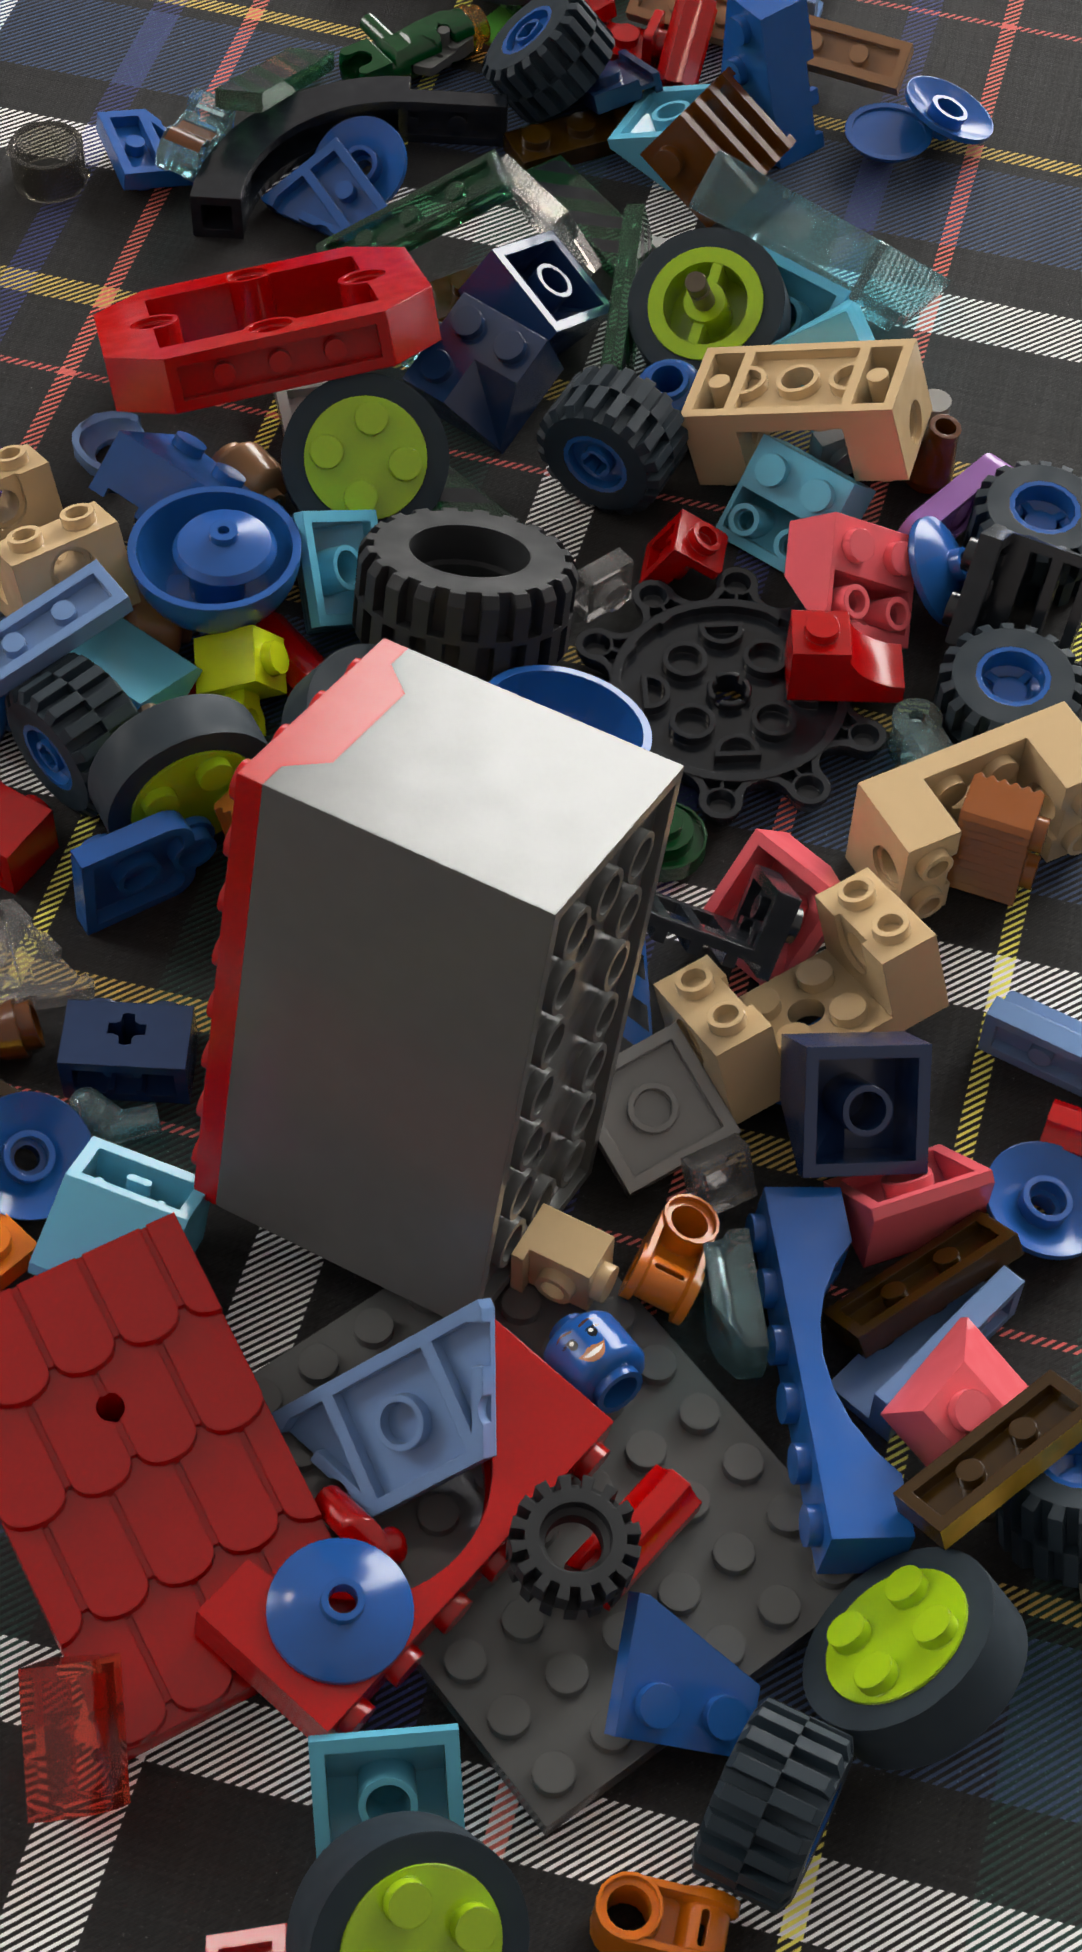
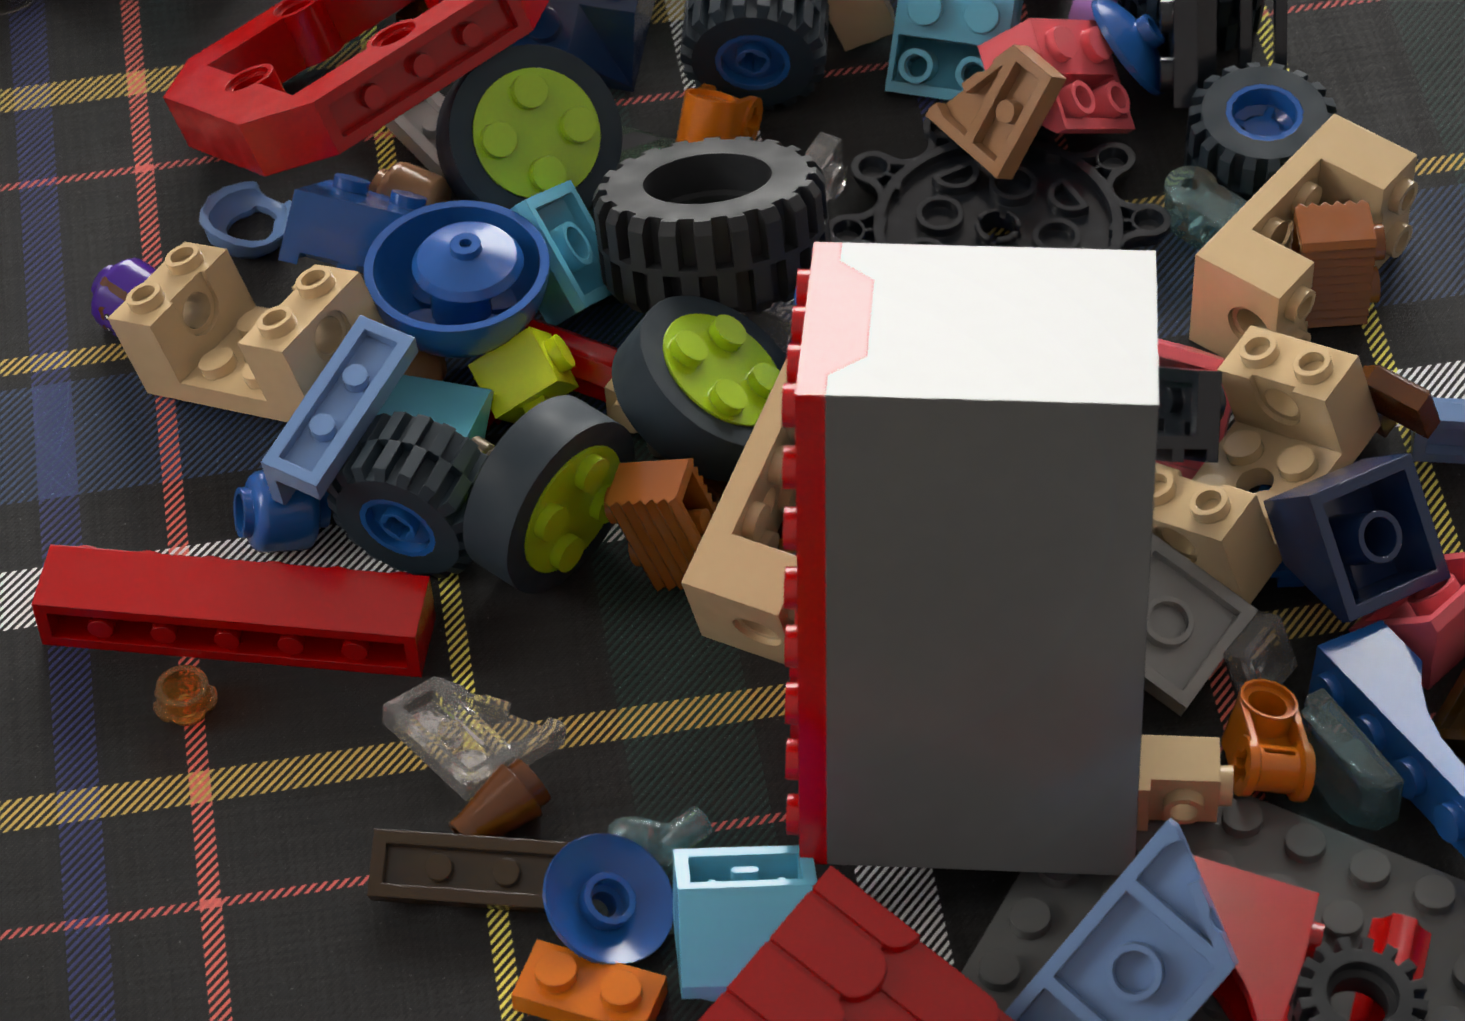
camera: 20 degrees left, 5 degrees down
(129, 1050) = (640, 767): dark blue brick -> none
(138, 866) = (547, 598): blue plate -> none
(546, 502) = (718, 114): none -> orange piece
(597, 1358) = (1264, 845): blue head -> none
(682, 545) = (872, 111): red bracket -> none
(776, 582) = (1001, 109): none -> medium nougat wing
(838, 663) = (1086, 162): red arch -> none
(968, 987) = (1401, 402): none -> reddish brown tile

